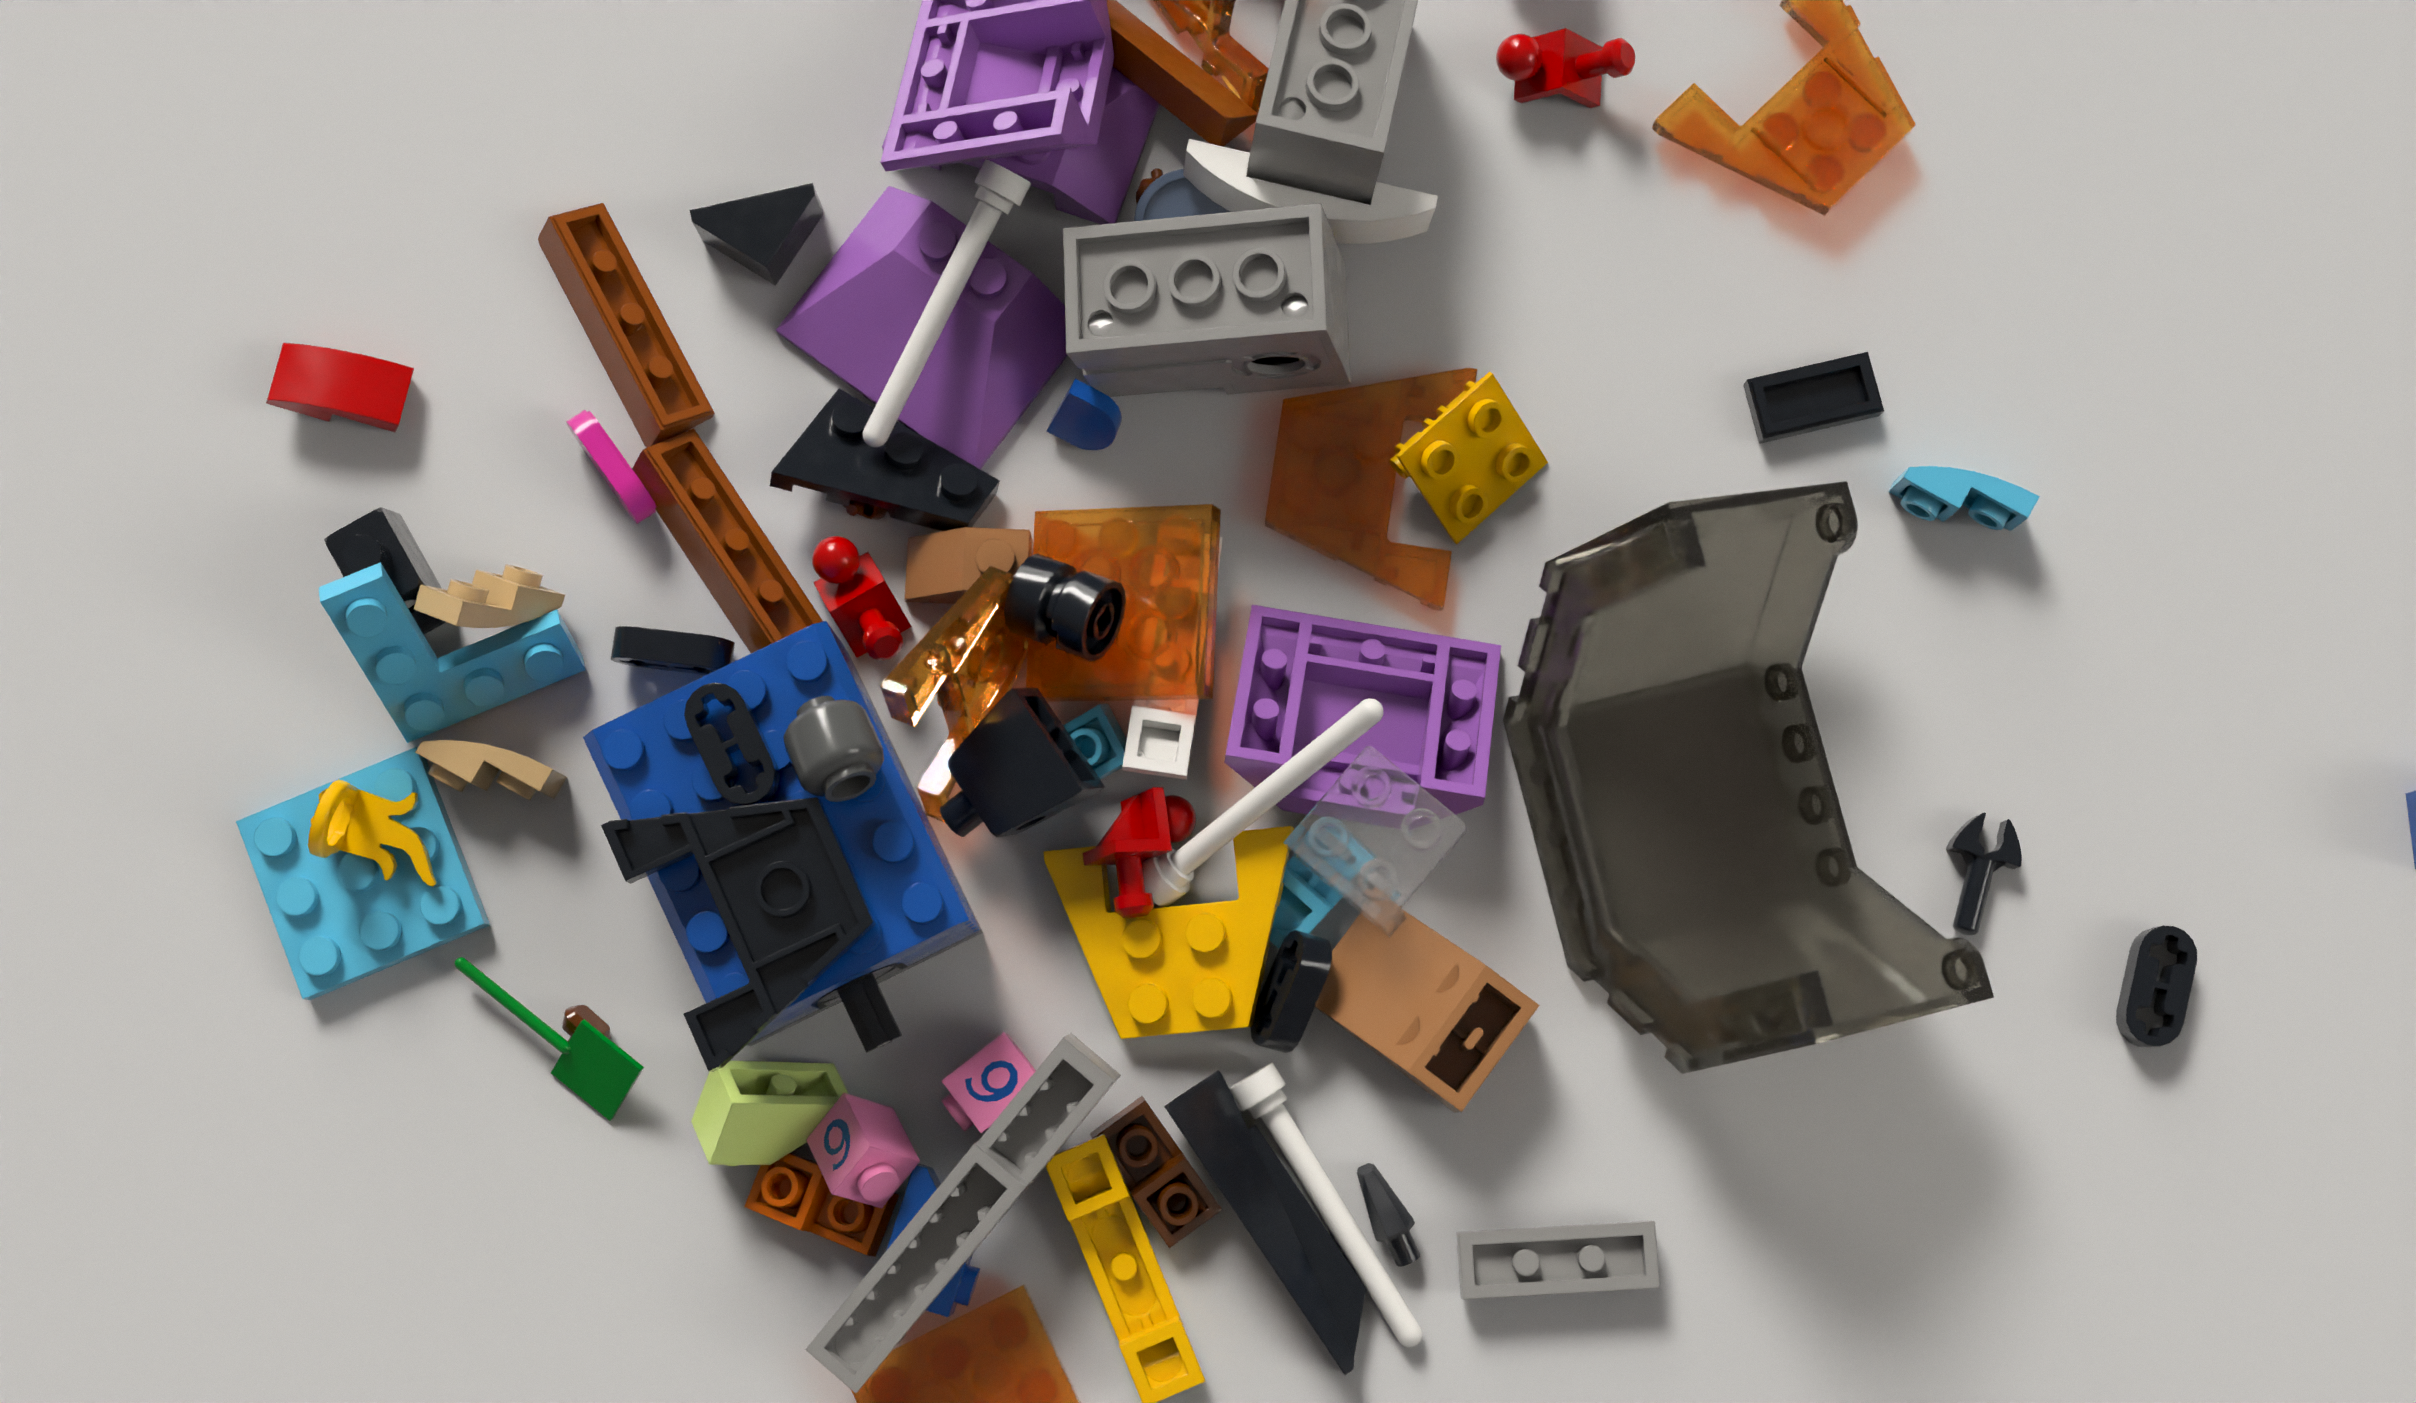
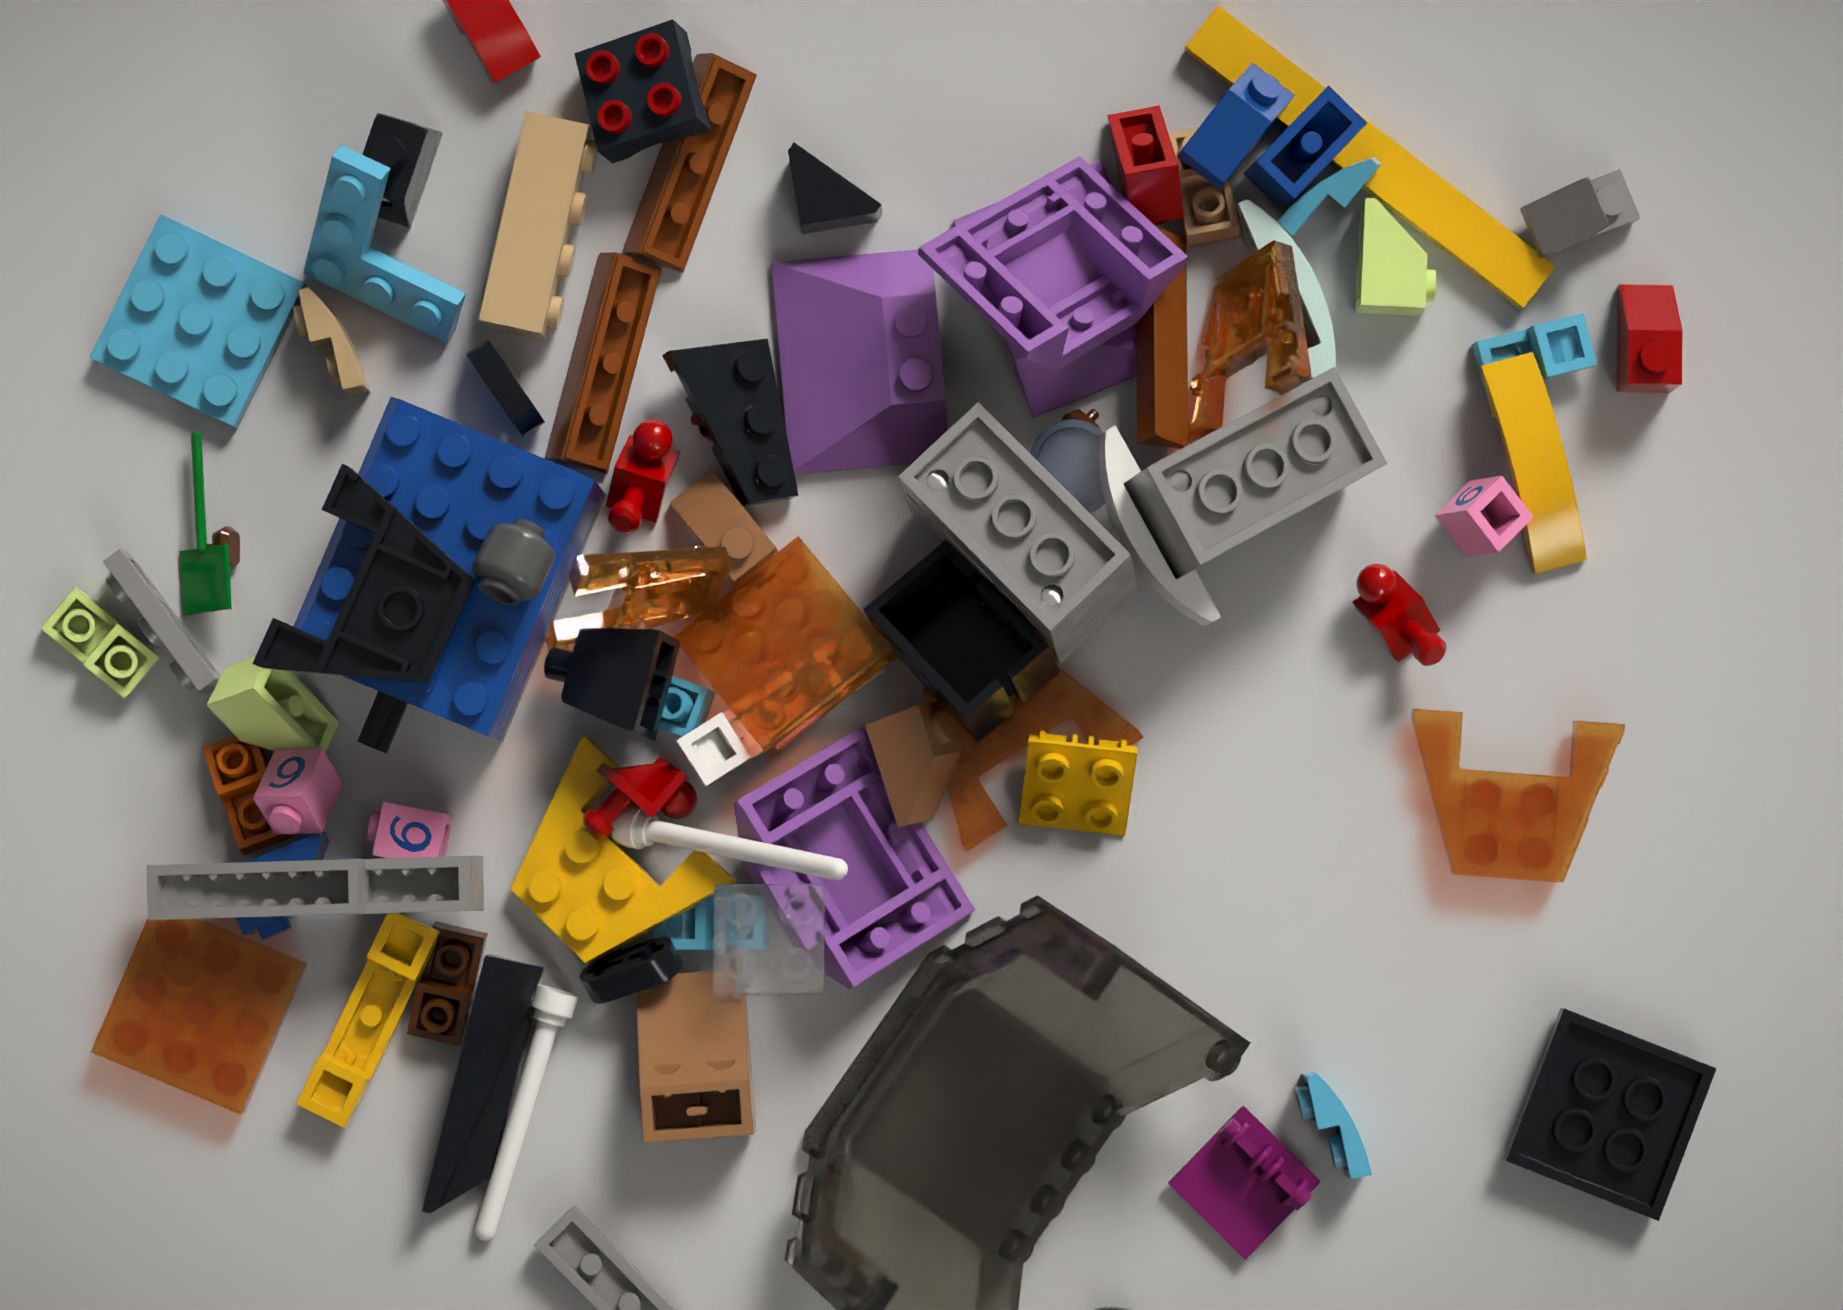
camera: 50 degrees right, 5 degrees up
(361, 823) = (227, 298): yellow piece -> none
(490, 599) = (433, 250): tan slope -> none
(523, 303) = (641, 90): none -> black brick
(557, 499) = (537, 226): none -> tan brick
(565, 1217) = (100, 642): none -> yellowish green slope
(597, 1145) = (160, 622): none -> light grey plate
(612, 466) = (588, 241): dark pink tile -> none
(717, 753) = (449, 492): black beam -> none
(996, 194) = (969, 335): white piece -> none
(1058, 604) = (742, 608): black wheel -> none
(1086, 418) = (886, 515): blue tile -> none
(1262, 454) = (956, 647): none -> black piece
(1323, 574) = (915, 759): none -> medium nougat slope
(1387, 1215) = (546, 1152): black bar -> none
(1813, 397) = (1320, 971): black tile -> none
(1946, 619) = (1244, 1182): none -> magenta hinge
(2150, 259) = (1609, 1114): none -> black plate

